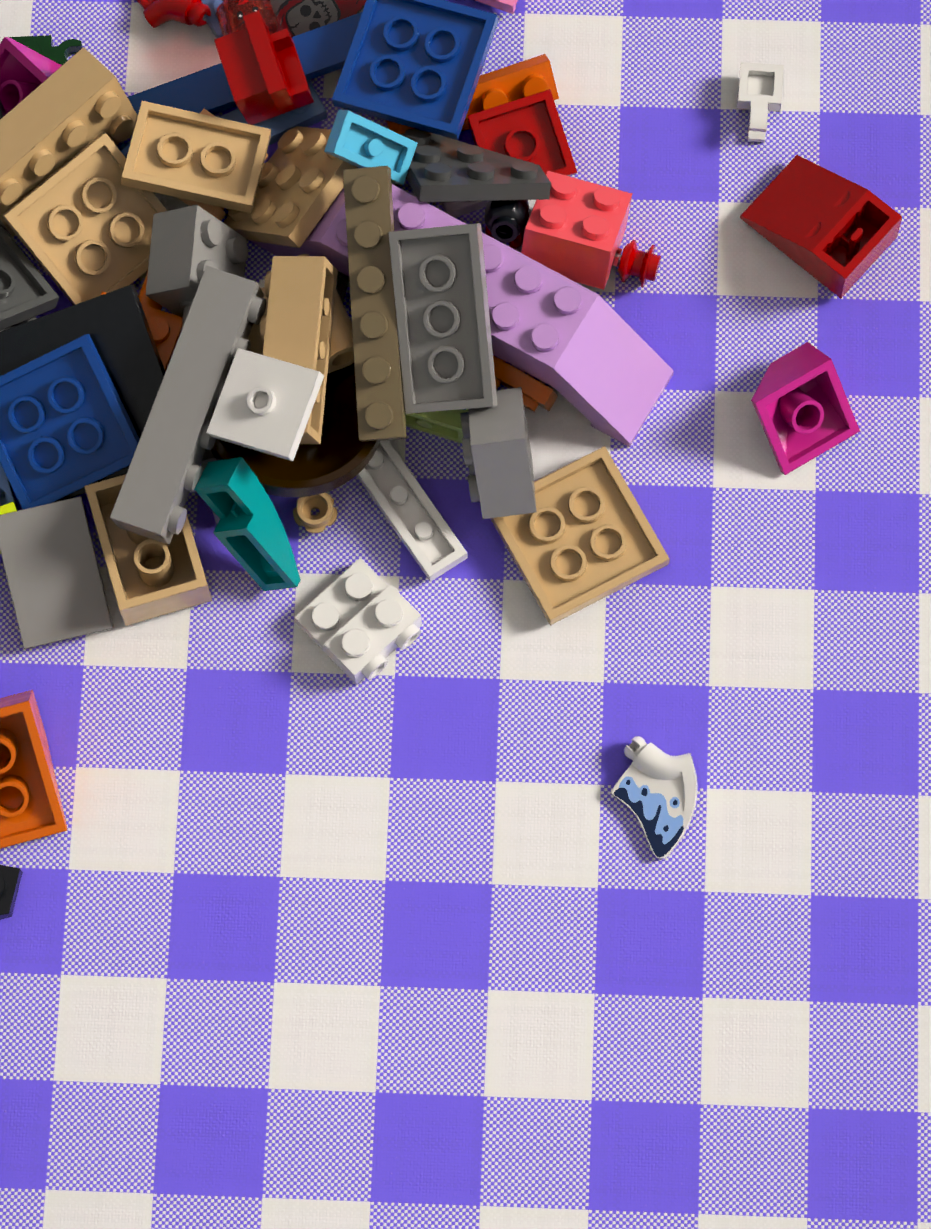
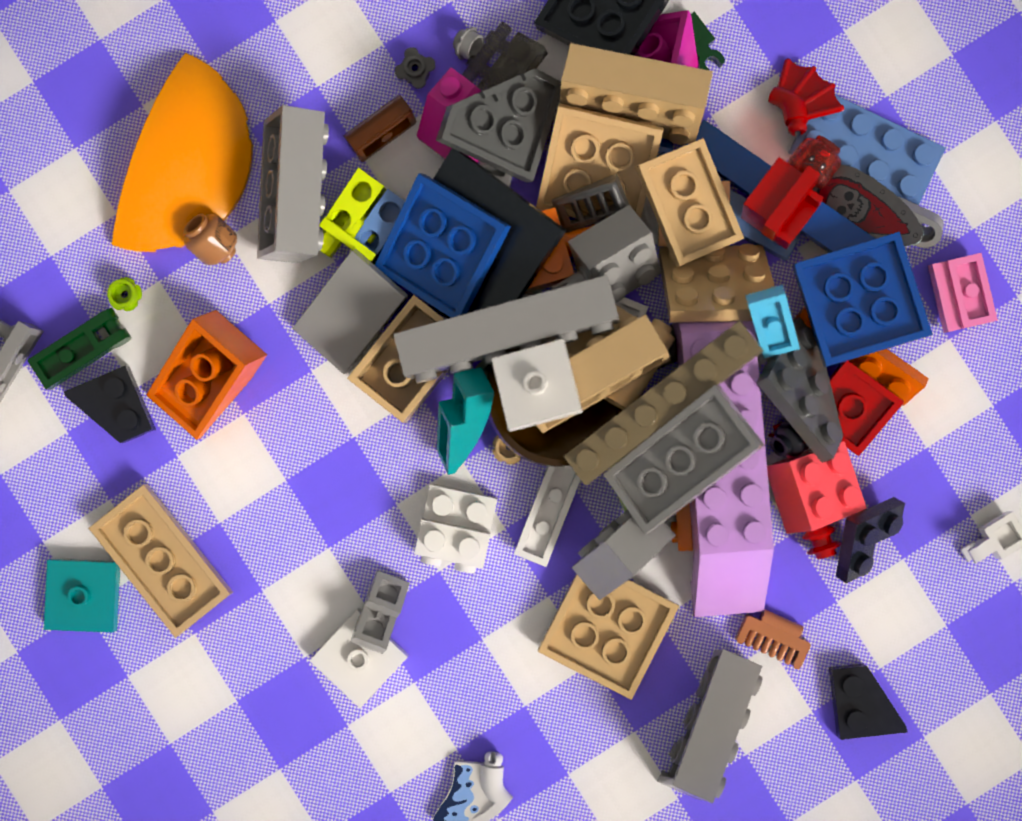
camera: 60 degrees right, 15 degrees up
(114, 237) = (597, 188): none -> flat silver slope
(143, 1072) = (81, 595): none -> teal plate
(167, 955) = (160, 560): none -> tan plate
(391, 758) = (380, 612): none -> light grey slope
(426, 817) = (356, 668): none -> white plate
(656, 215) = (862, 534): none -> black plate
(707, 368) = (777, 629): none -> nougat piece
(756, 496) = (713, 727): none -> light grey wedge
(803, 407) = (797, 716): dark pink slope -> none
(823, 223) = (935, 644): red slope -> none
(842, 333) = (861, 704): none -> black wing

